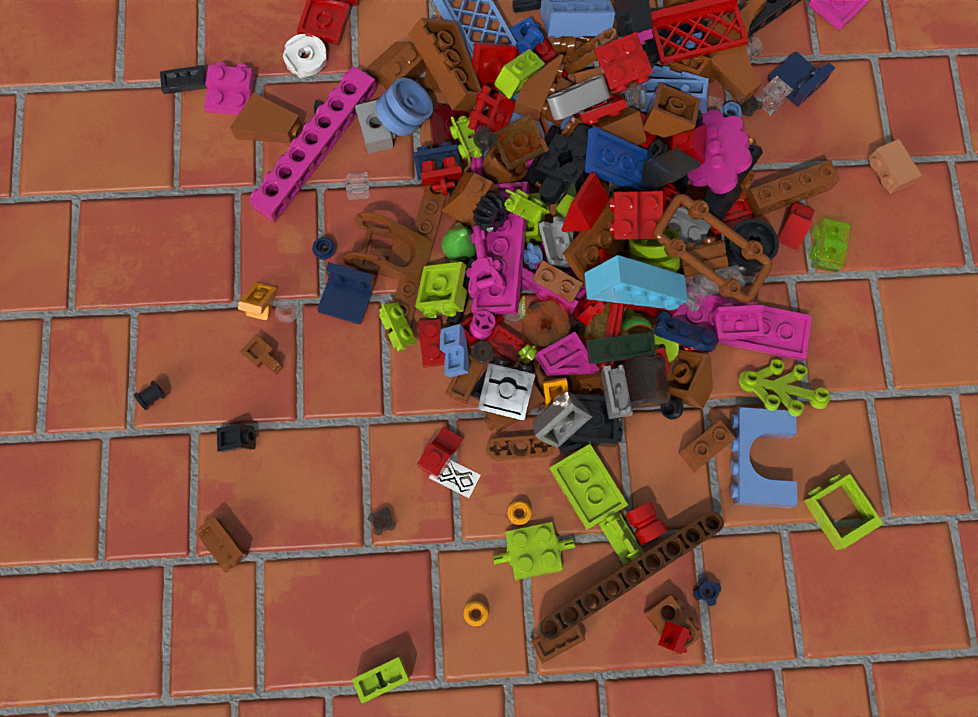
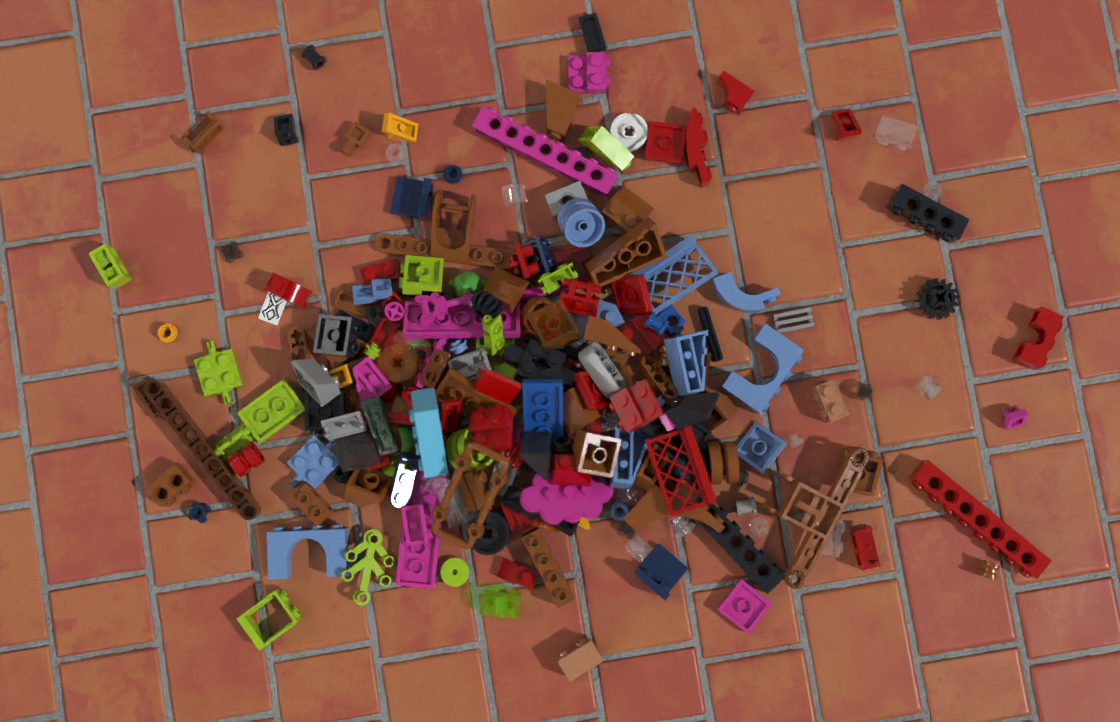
camera: 90 degrees right, 10 degrees up
(318, 78) = (606, 147): none -> lime slope
(394, 318) = (387, 243): lime hinge -> none
(484, 138) = (553, 293): clear smoke plate -> none
(517, 72) = (619, 317): lime brick -> none
(519, 505) = (242, 358): light orange plate -> none
(654, 442) = (314, 462): none -> medium blue plate
(674, 638) = (153, 484): red tile -> none
(792, 293) = (454, 572): none -> lime piece

